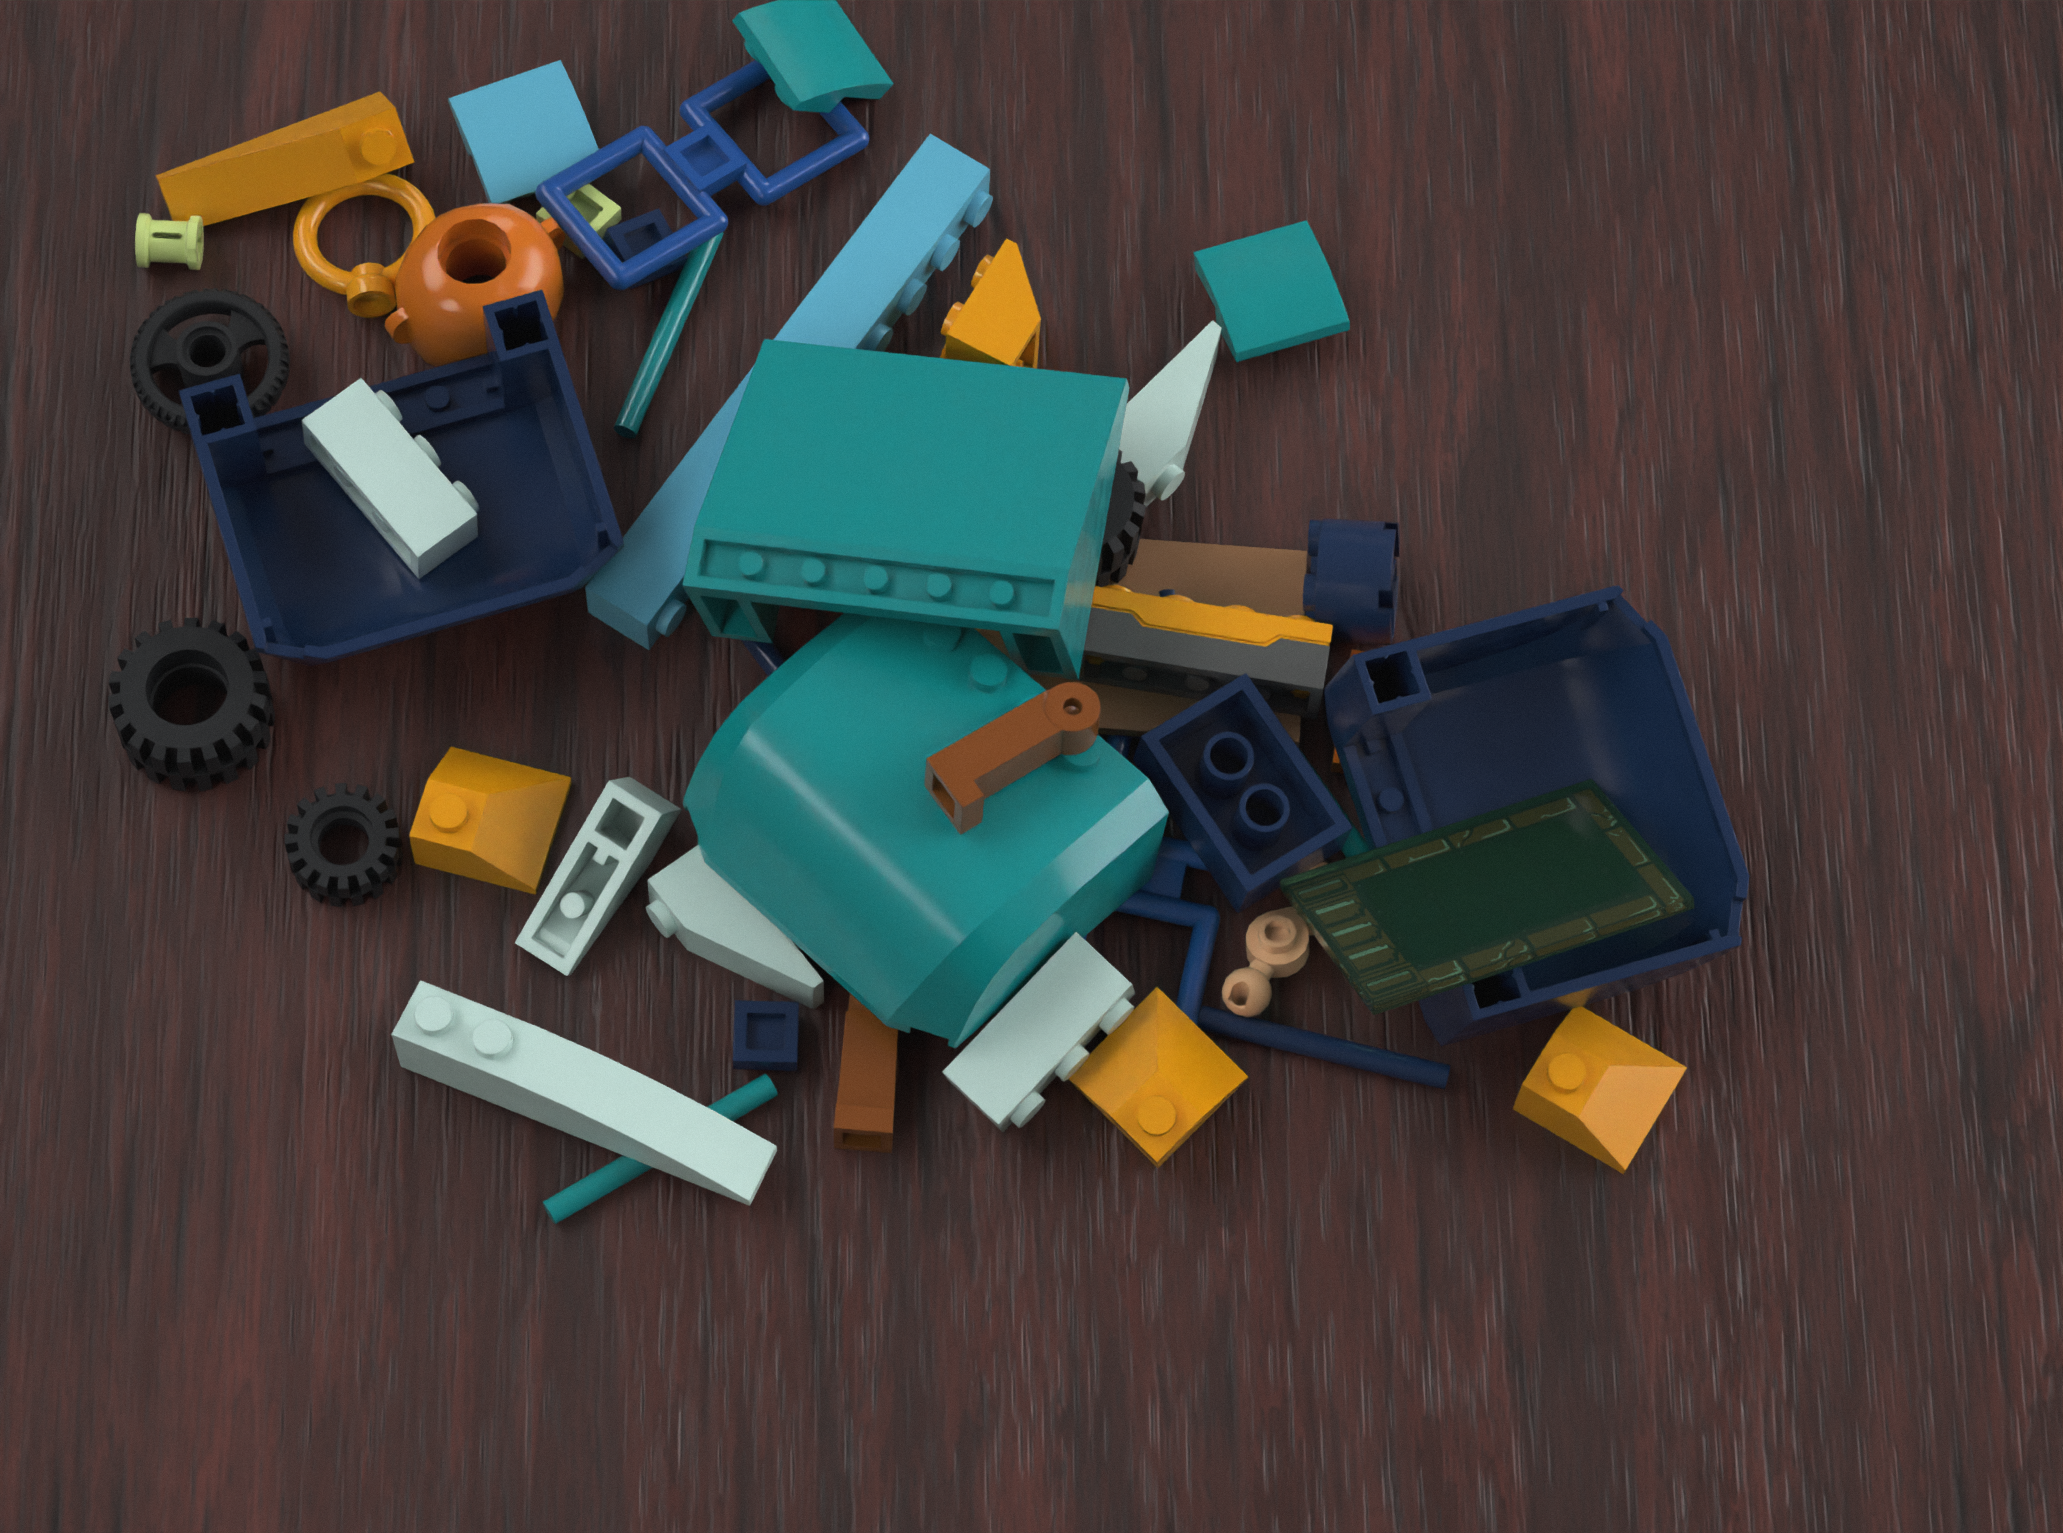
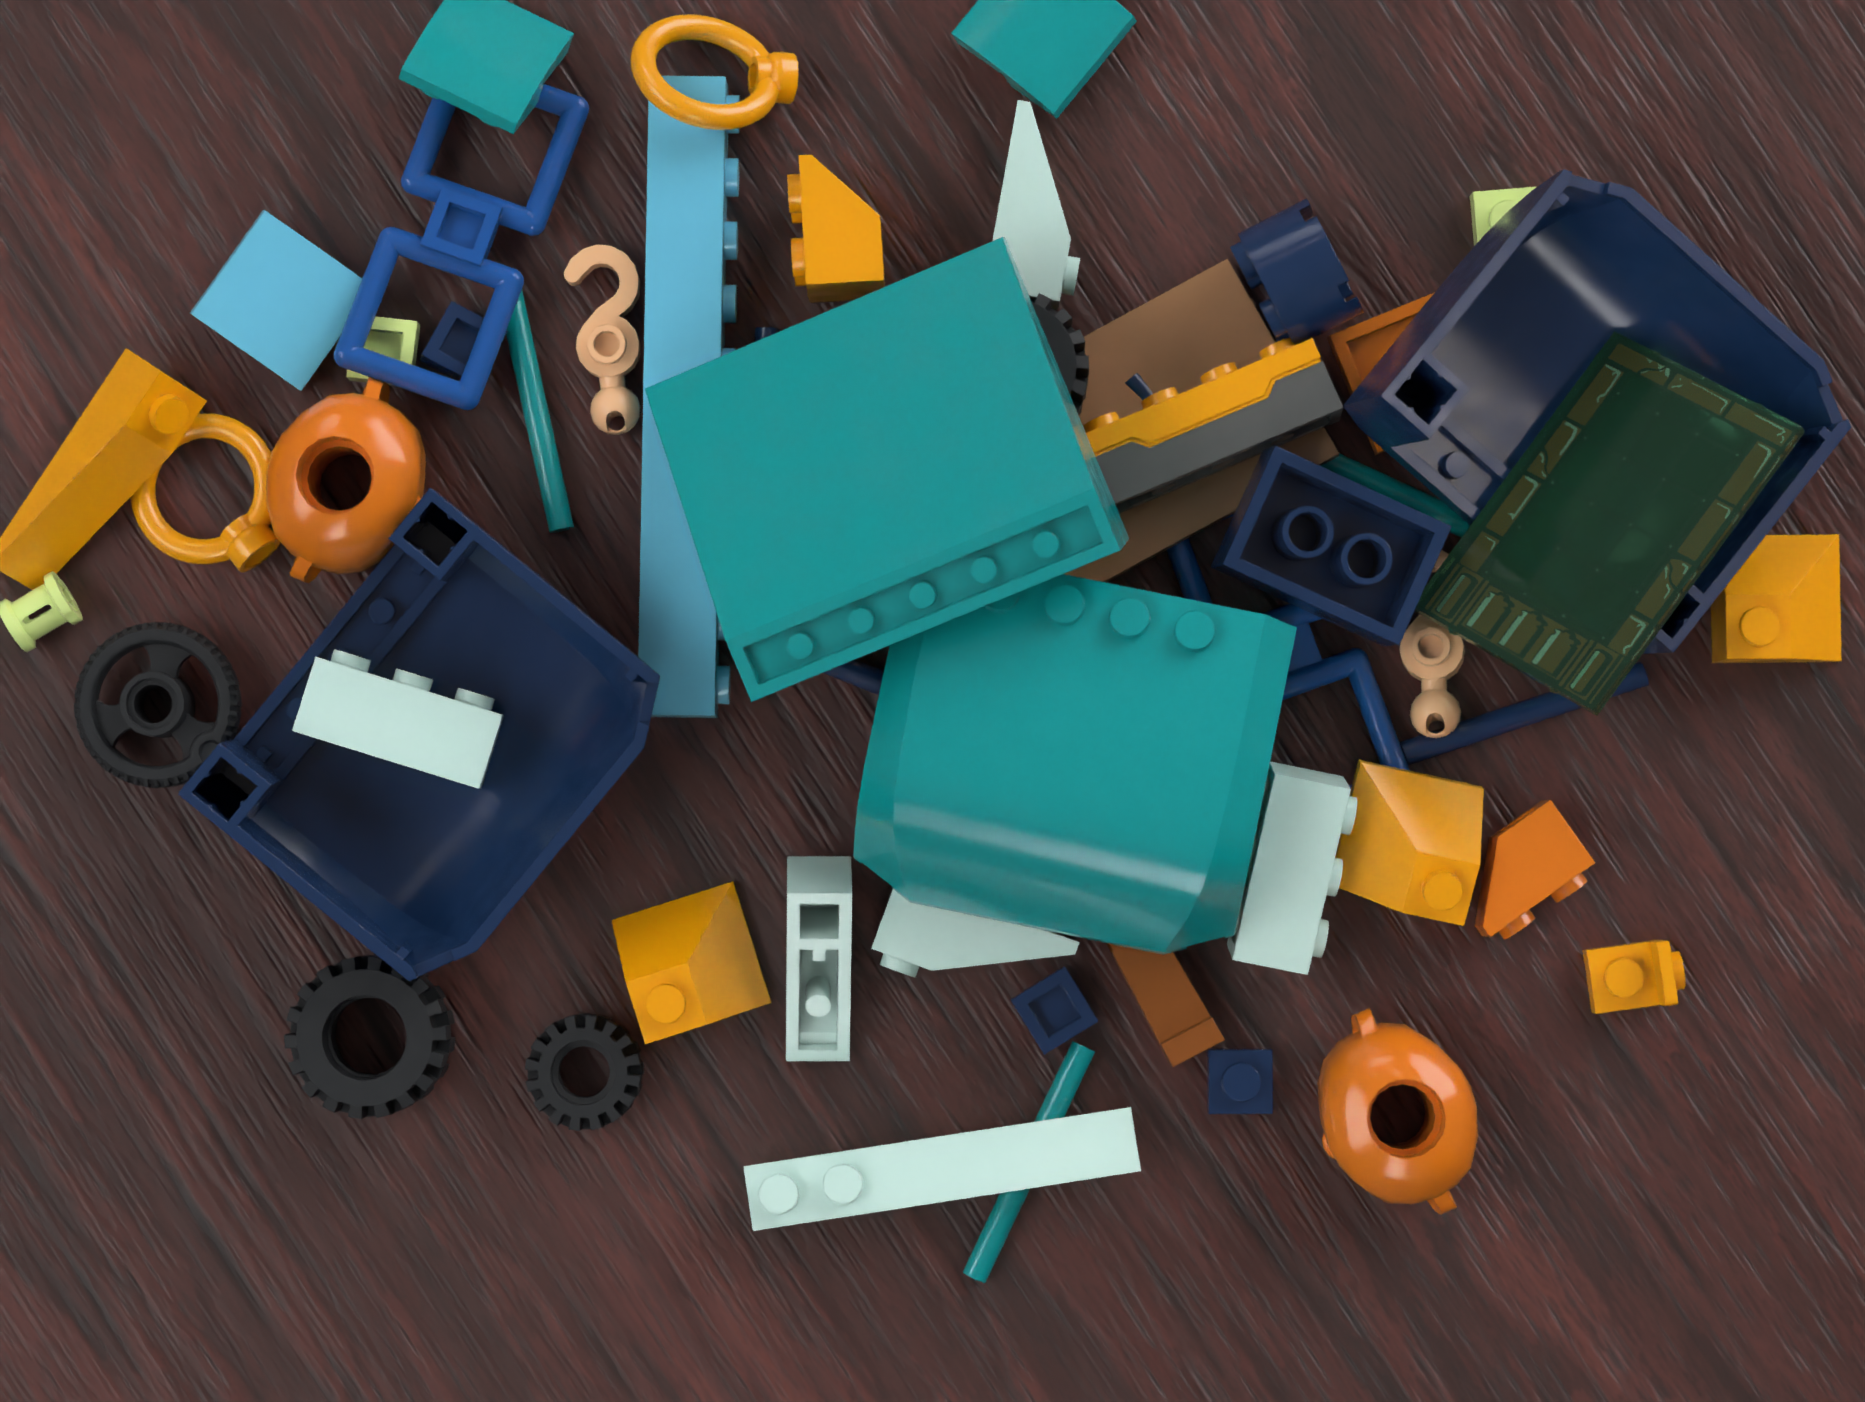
camera: 25 degrees left, 20 degrees up
(763, 308) = (607, 341): none -> light nougat piece
(883, 1193) = (1239, 1081): none -> dark blue plate
(987, 1342) = (1349, 1084): none -> orange piece
(1010, 747) = (1166, 622): dark orange leg -> none
(1027, 198) = (770, 75): none -> light orange piece
(1244, 1163) = (1525, 865): none -> orange slope
(1278, 1314) = (1633, 976): none -> light orange bracket

